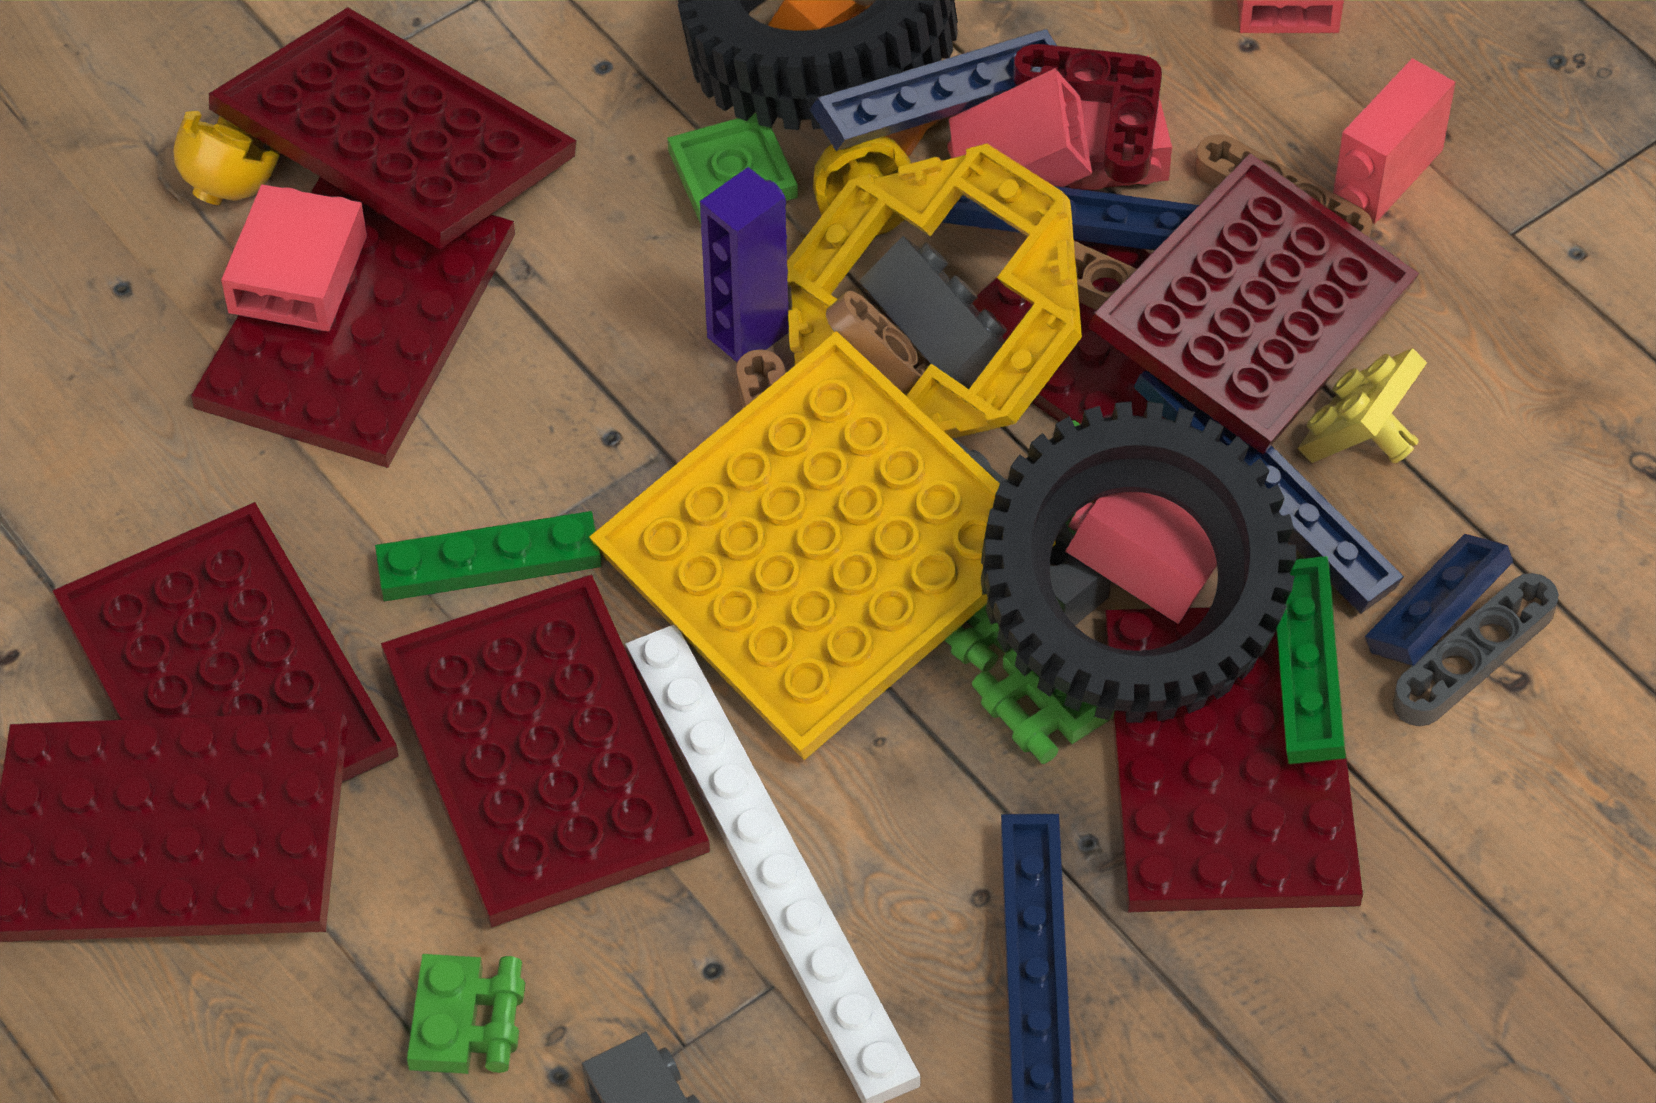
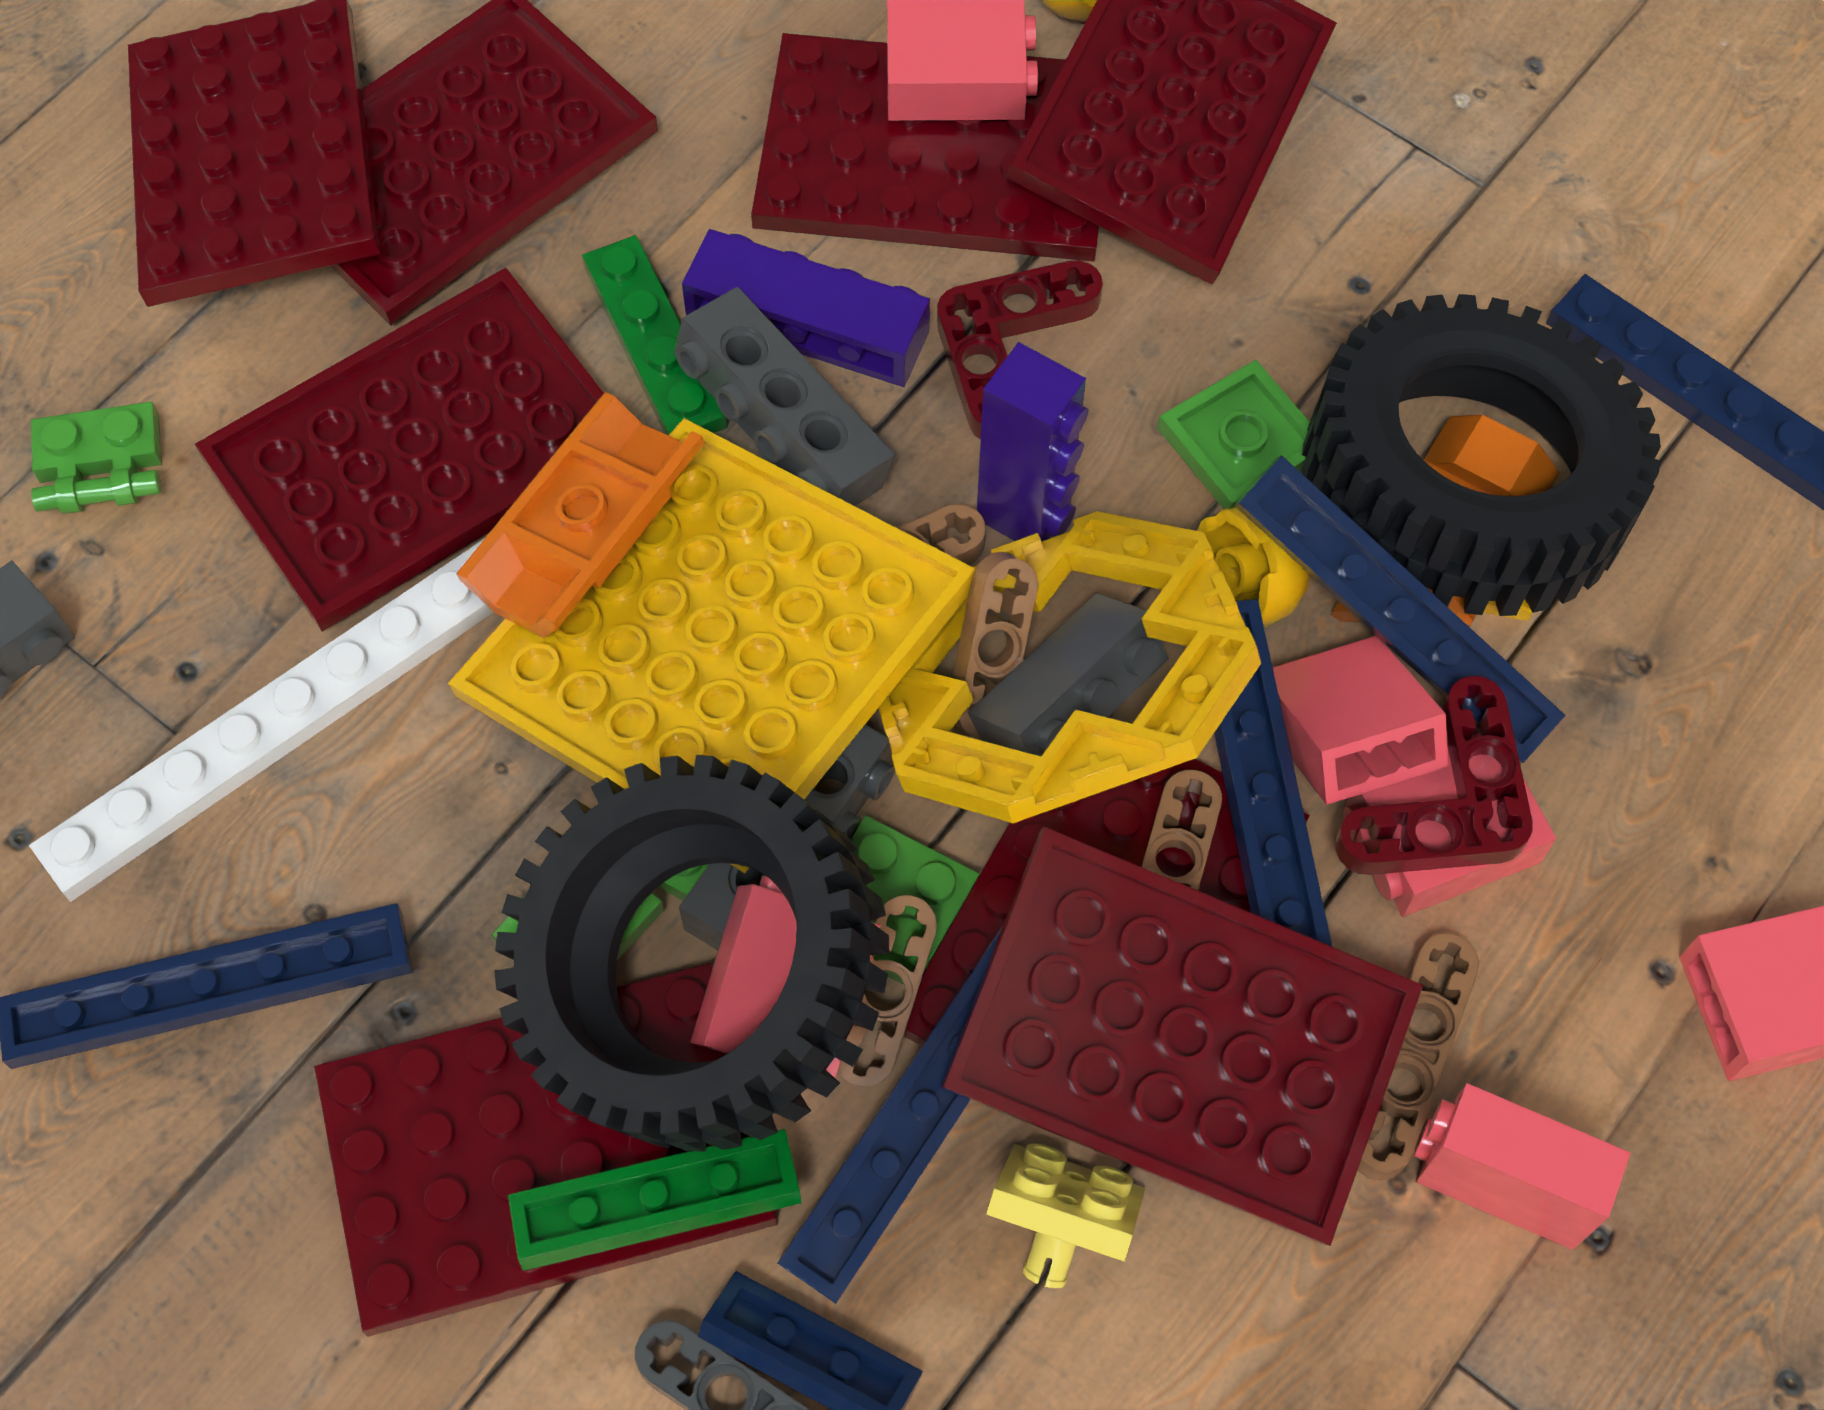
camera: 75 degrees right, 10 degrees up
(502, 430) = (816, 307): none -> dark purple brick
(559, 311) = (994, 321): none -> dark red beam
(600, 456) = (780, 399): none -> dark grey brick
(685, 610) = (577, 517): none -> orange piece

